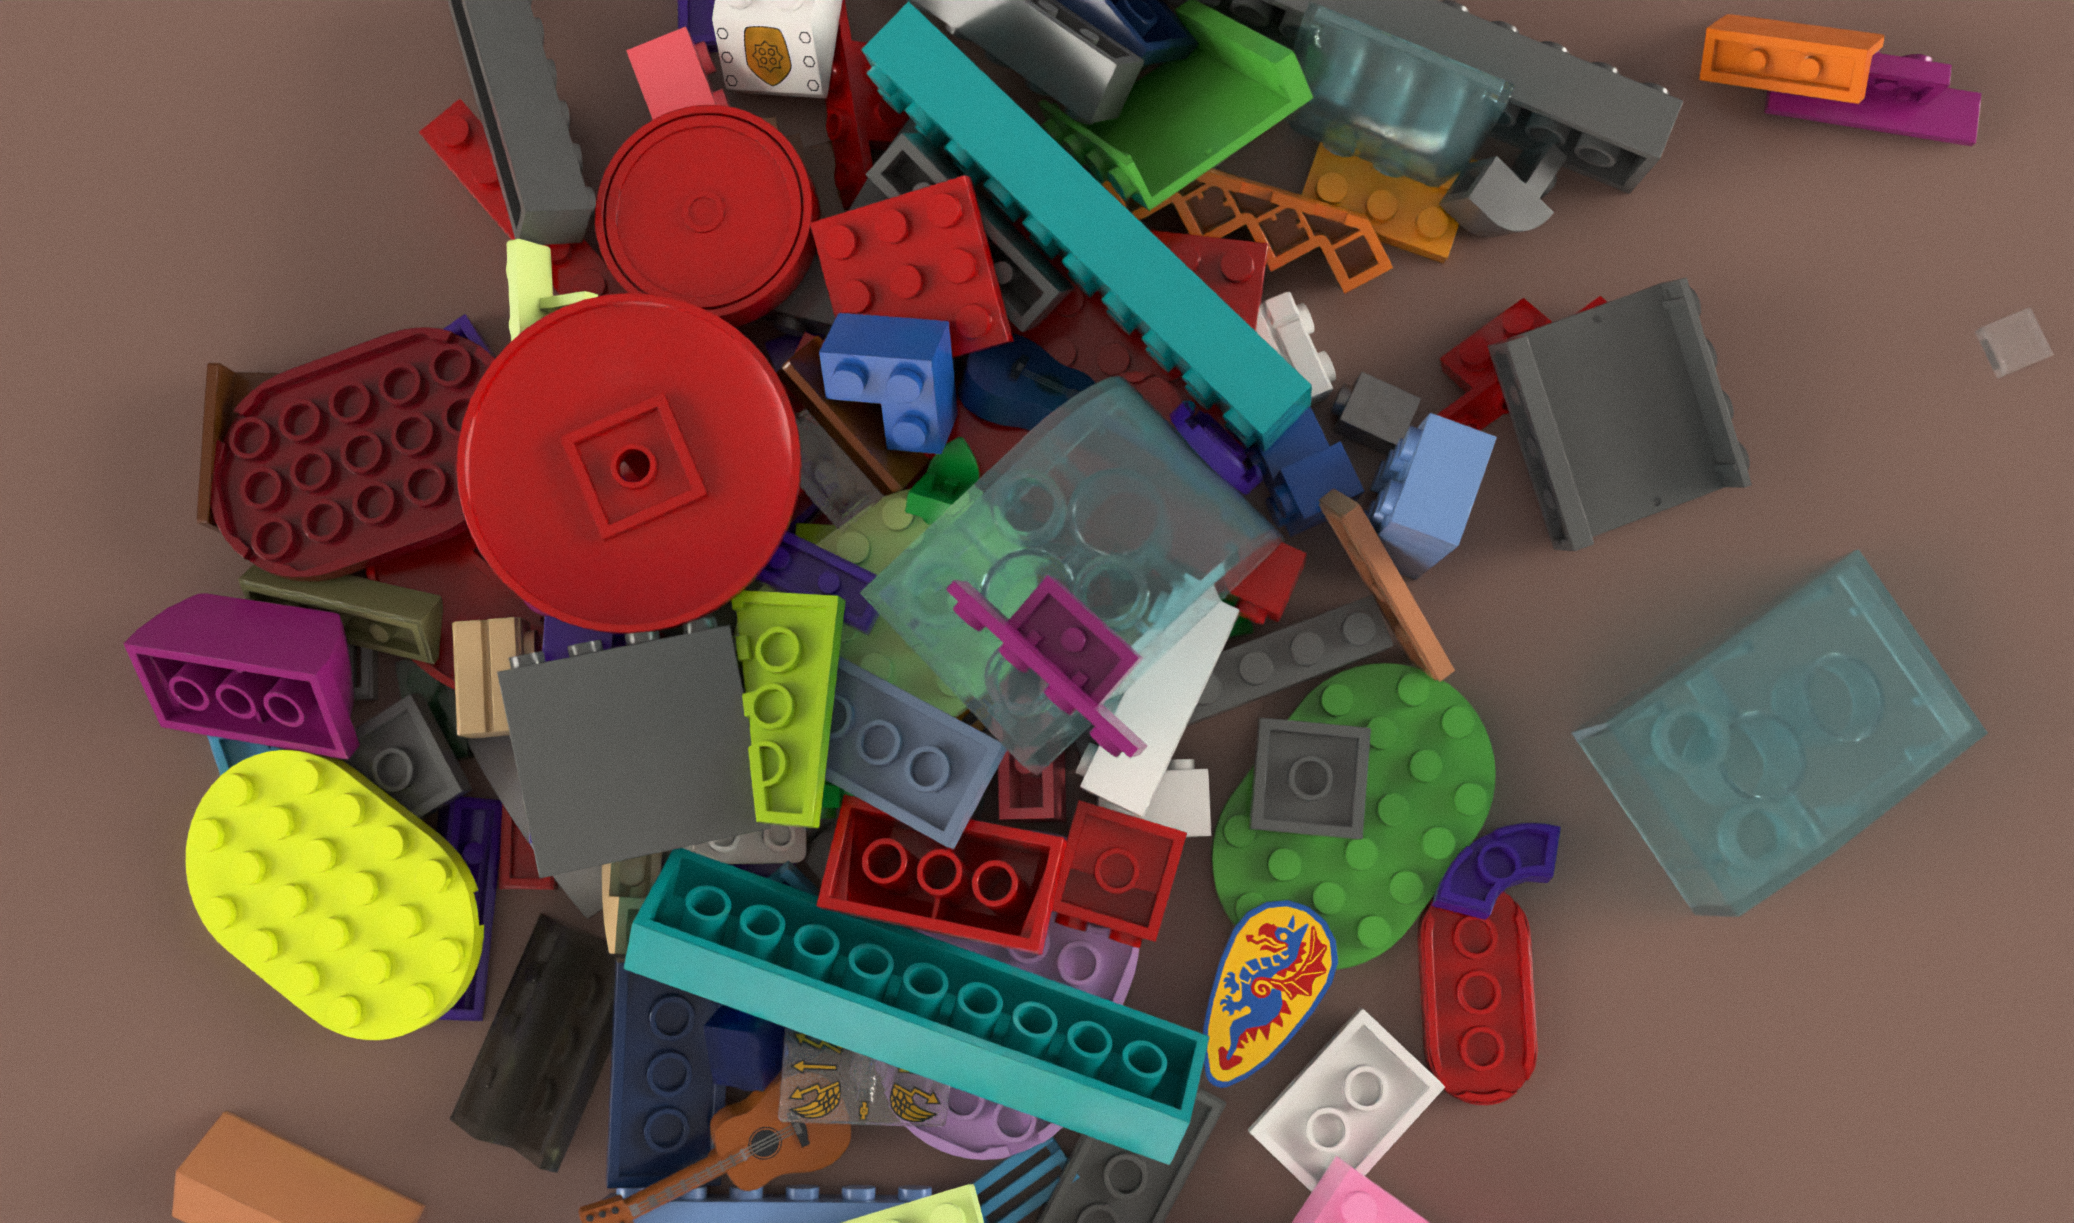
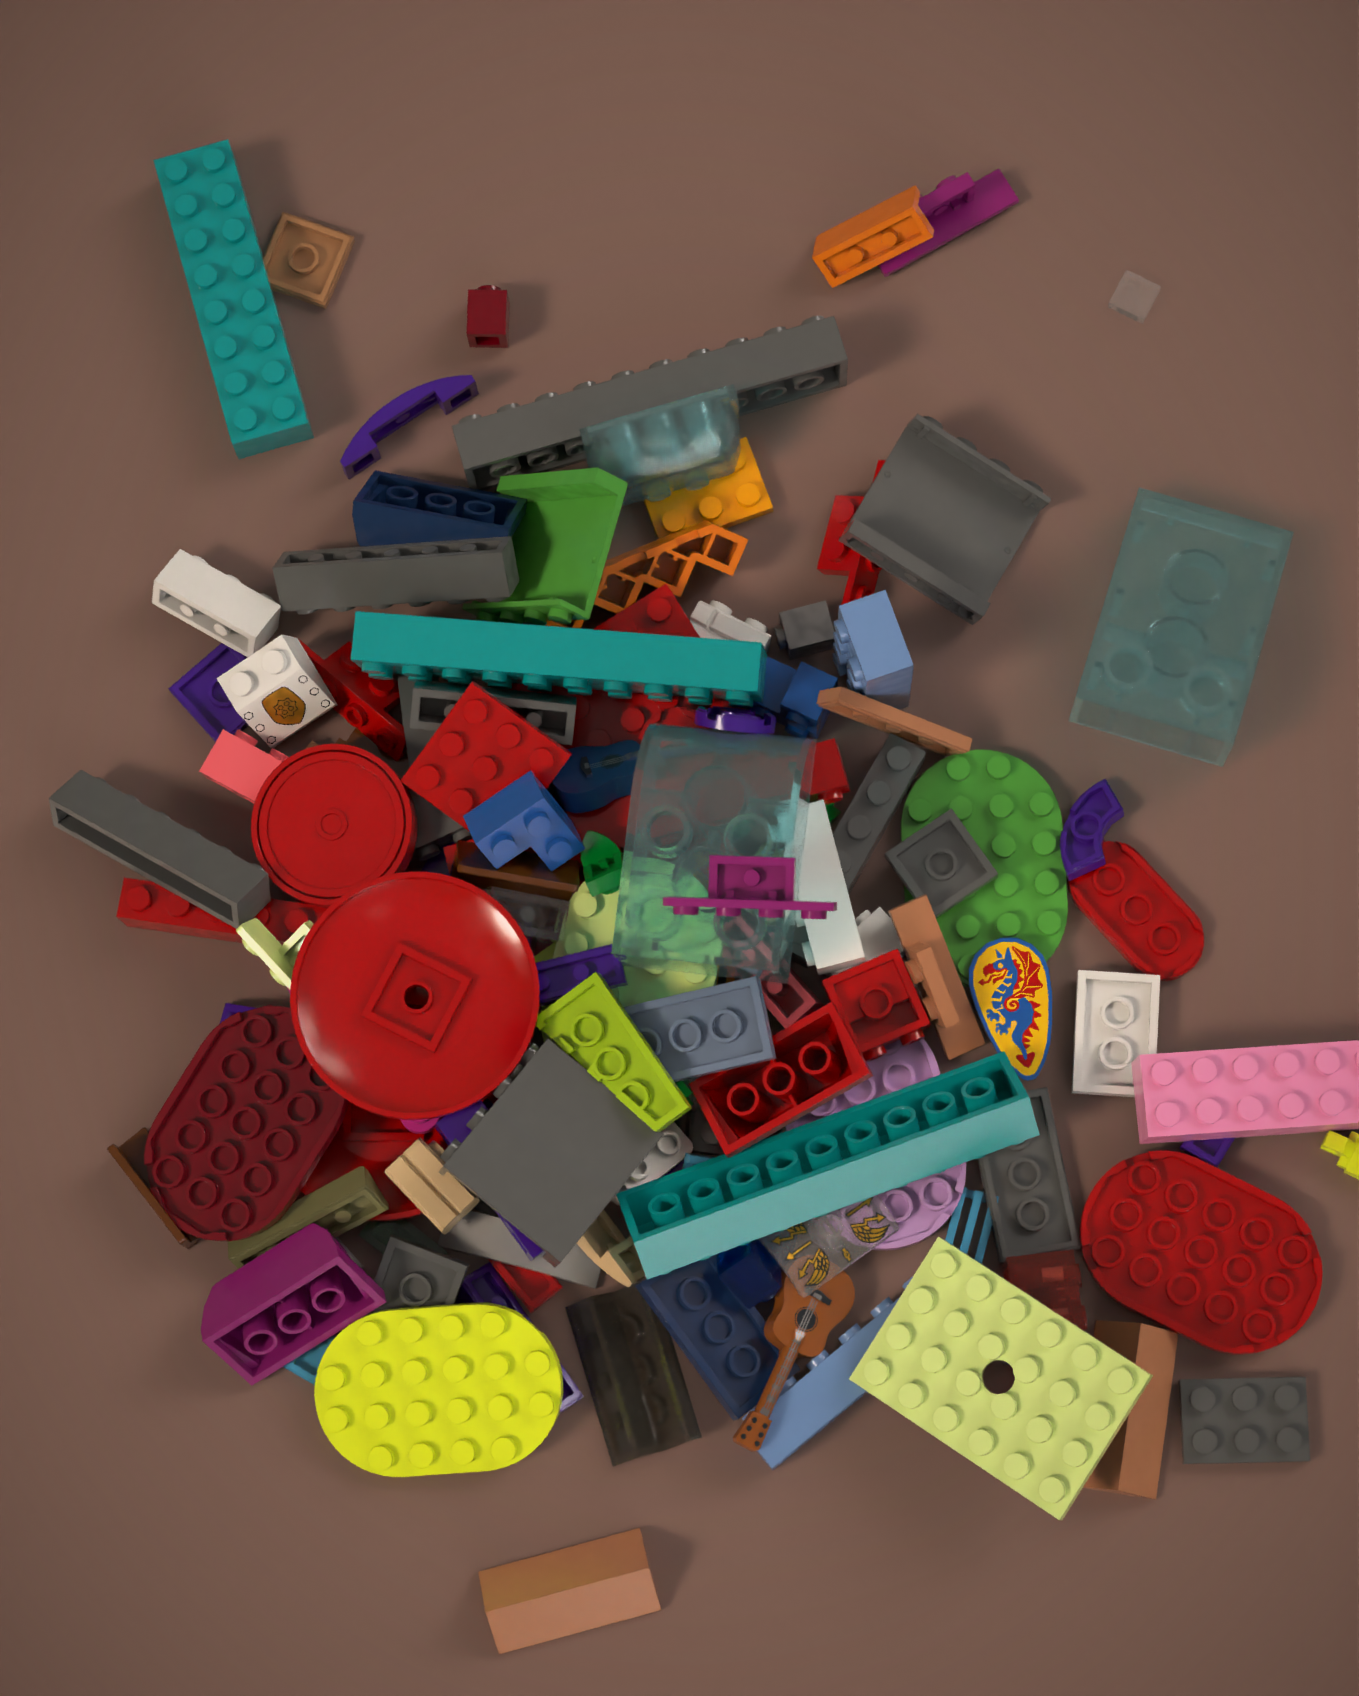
camera: 30 degrees left, 5 degrees down
(1205, 892) = (936, 976): none -> nougat bracket
(1504, 200) = (775, 452): dark grey brick -> none

